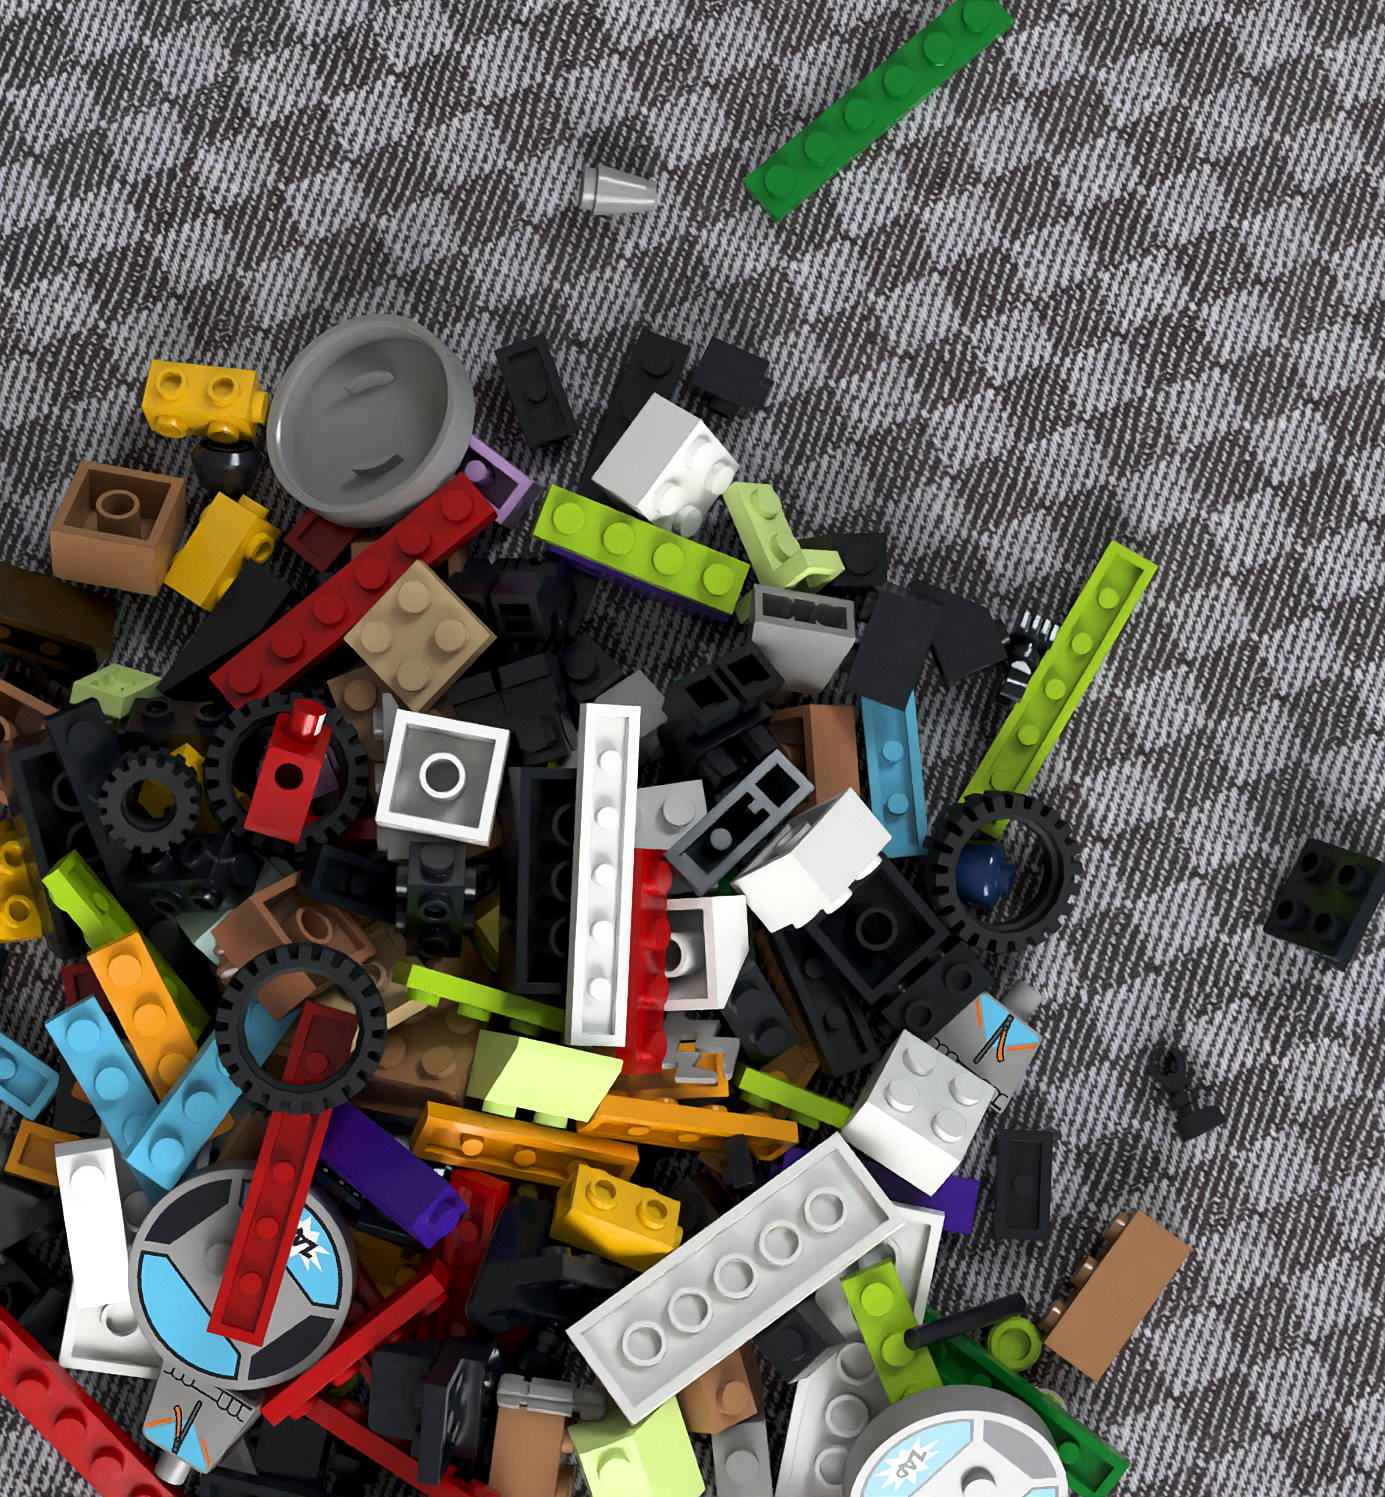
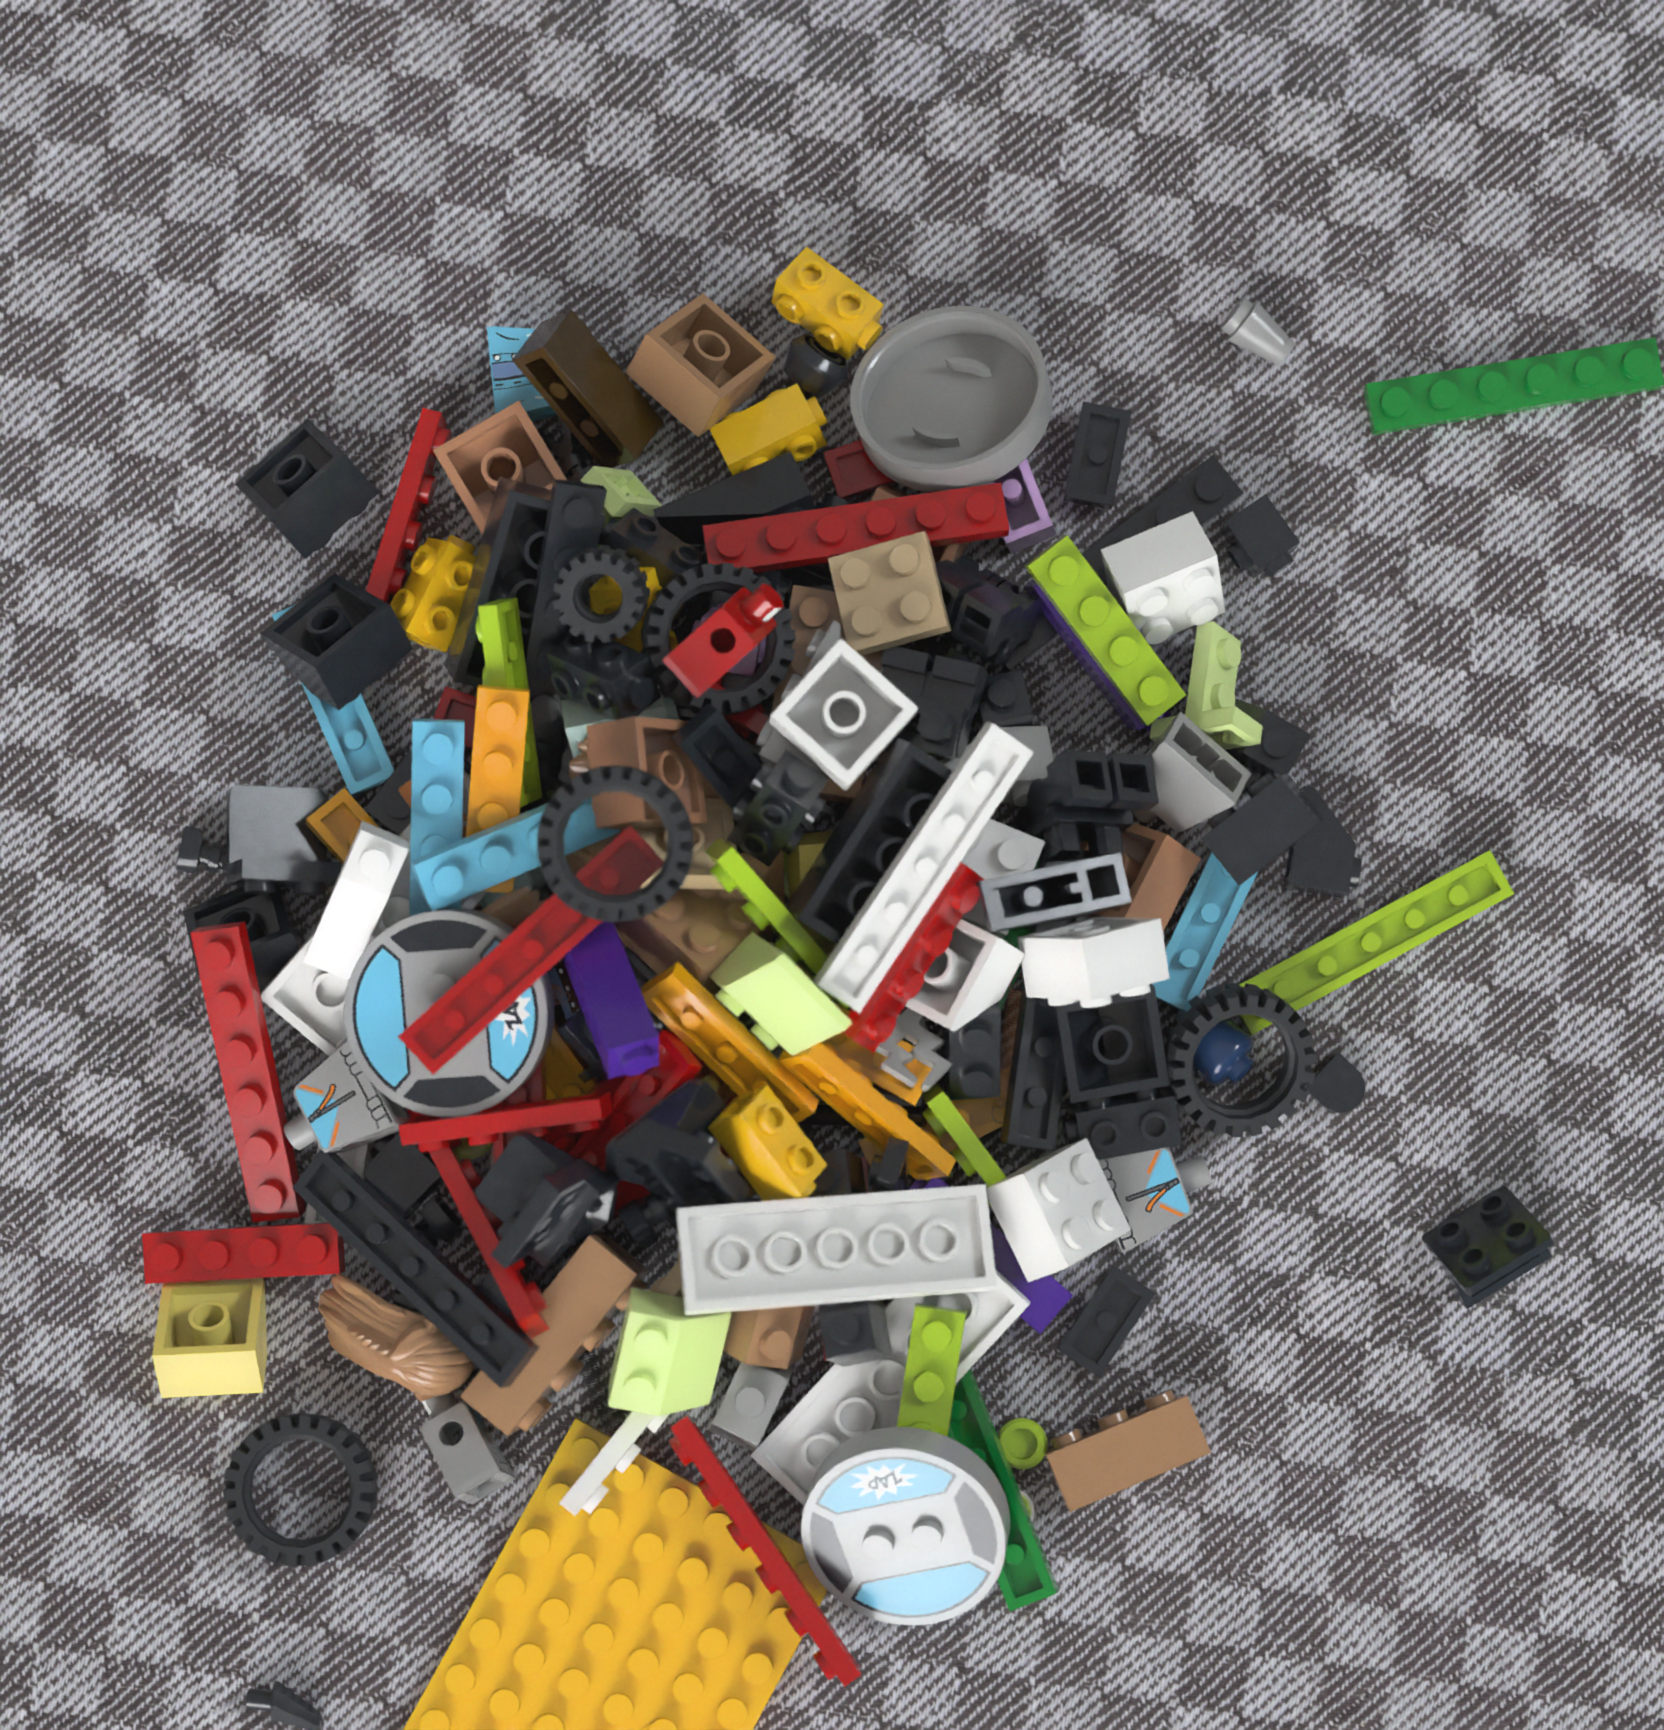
camera: 25 degrees right, 0 degrees up
(552, 1397) = (633, 1255): light grey axle -> none
(964, 1321) = (994, 1398): black bar -> none
(1030, 640) = (1374, 891): black piece -> none
(1103, 838) = (1337, 1085): none -> black tile
(1193, 1119) = (1274, 1353): black piece -> none

